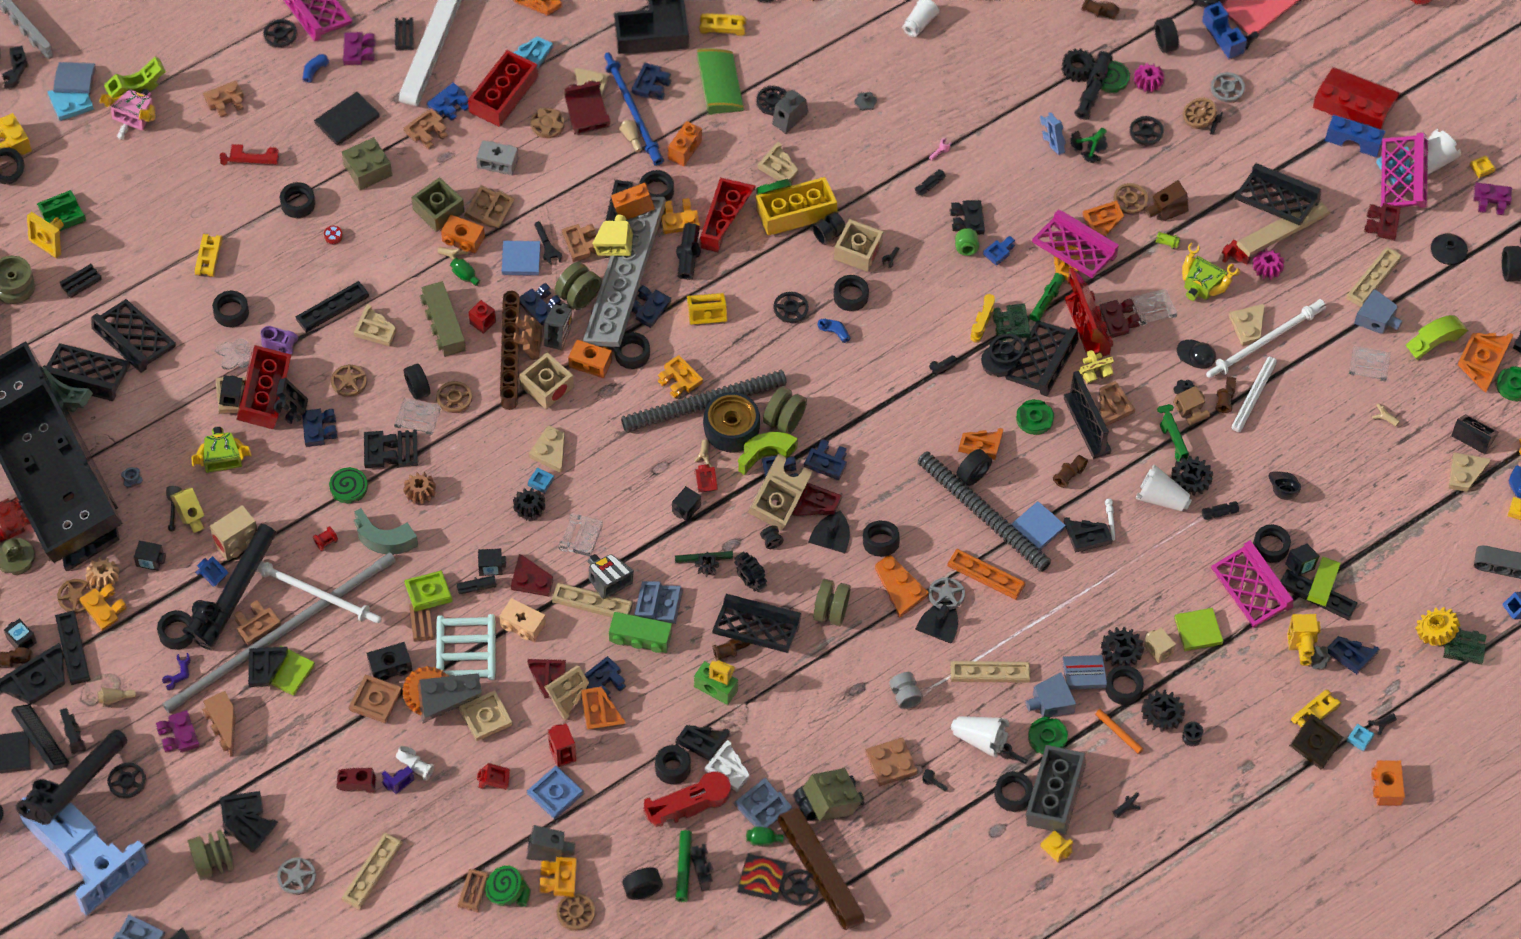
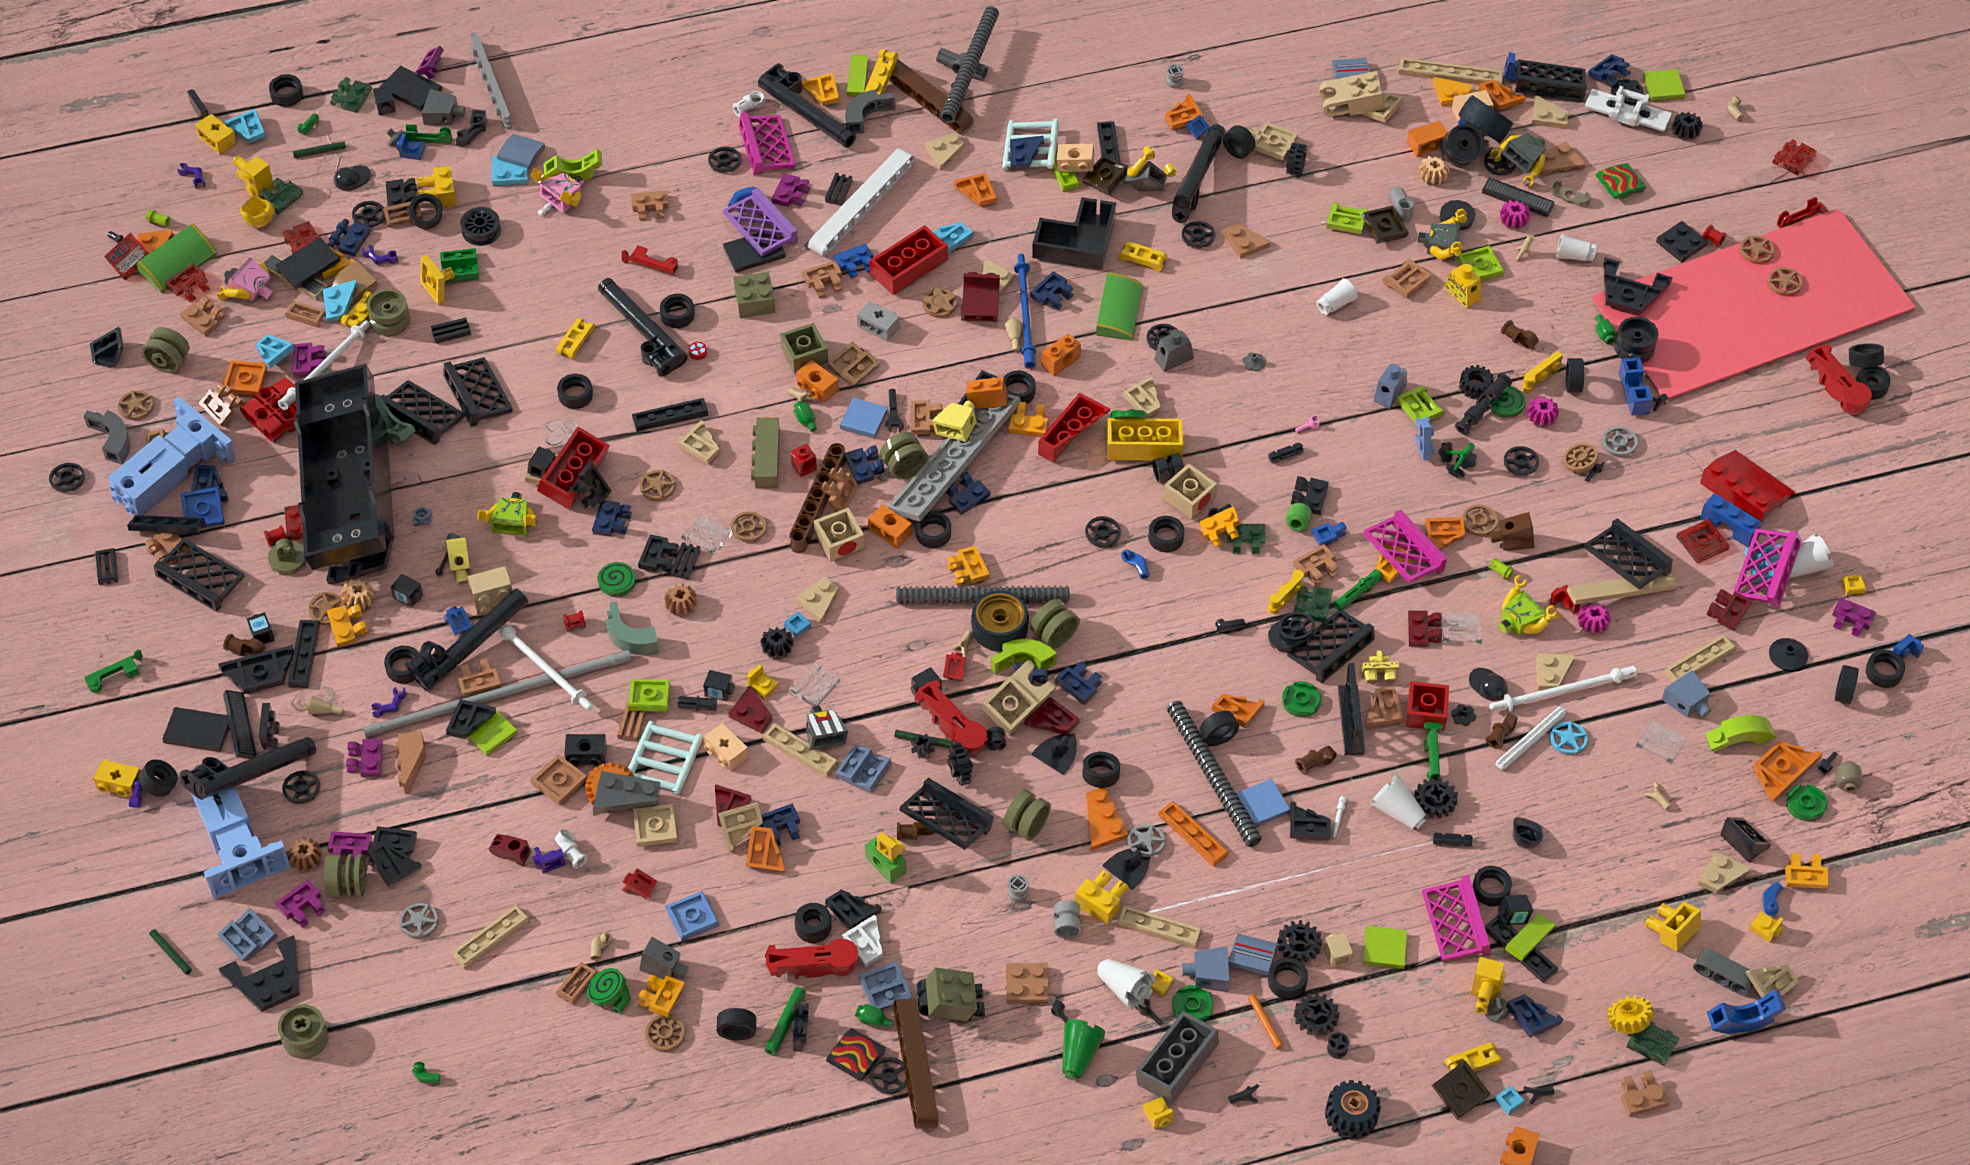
camera: 20 degrees right, 5 degrees down
(66, 166) = (480, 226): none -> black wheel
(160, 838) = (304, 854): none -> nougat gear
(172, 891) = (299, 899): none -> magenta plate
(199, 821) = (349, 843): none -> magenta plate
(281, 339) = (606, 429): medium lavender piece -> none
(302, 246) = (659, 349): none -> black piece
(354, 80) = (772, 216): none -> medium lavender fence
(417, 381) = (717, 501): black tyre -> none
(479, 845) = (598, 944): none -> tan arm
(529, 547) = (761, 682): none -> yellow bracket
(558, 317) = (870, 487): dark grey torso -> none
(562, 745) = (713, 872): red brick -> none
(640, 632) = (833, 790): bright green brick -> none
(688, 251) = (1023, 453): black piece -> none
(707, 312) = (1020, 514): yellow tile -> none
(725, 531) = (950, 719): none -> red piece
(847, 678) = (1018, 888): none -> light grey wheel
(897, 269) = (1219, 523): none -> light orange plate
(924, 271) = (1248, 534): none -> clear green plate
(926, 664) = (1098, 901): none -> yellow brick
(965, 807) = (1079, 1047): none -> green cone
(997, 280) = (1314, 561): none -> nougat plate
(1003, 84) = (1395, 381): none -> sand blue torso
(1014, 723) = (1162, 983): none -> yellow tile
(1015, 777) = (1130, 1033): black tyre -> none
(1033, 106) = (1416, 408): none -> lime plate
(1087, 316) = (1390, 616): red piece -> none
(1134, 39) = (1542, 371): none -> yellow plate
(1152, 389) = (1427, 704): none -> red brick
(1190, 403) = (1461, 728): medium nougat brick -> none
(1229, 789) = (1352, 1109): none -> black wheel
(1286, 384) = (1568, 738): none -> medium azure wheel
(1336, 162) = (1702, 541): none -> clear red tile
(1450, 531) = (1679, 925): none -> yellow brick
(1476, 700) = (1645, 1099): none -> nougat plate

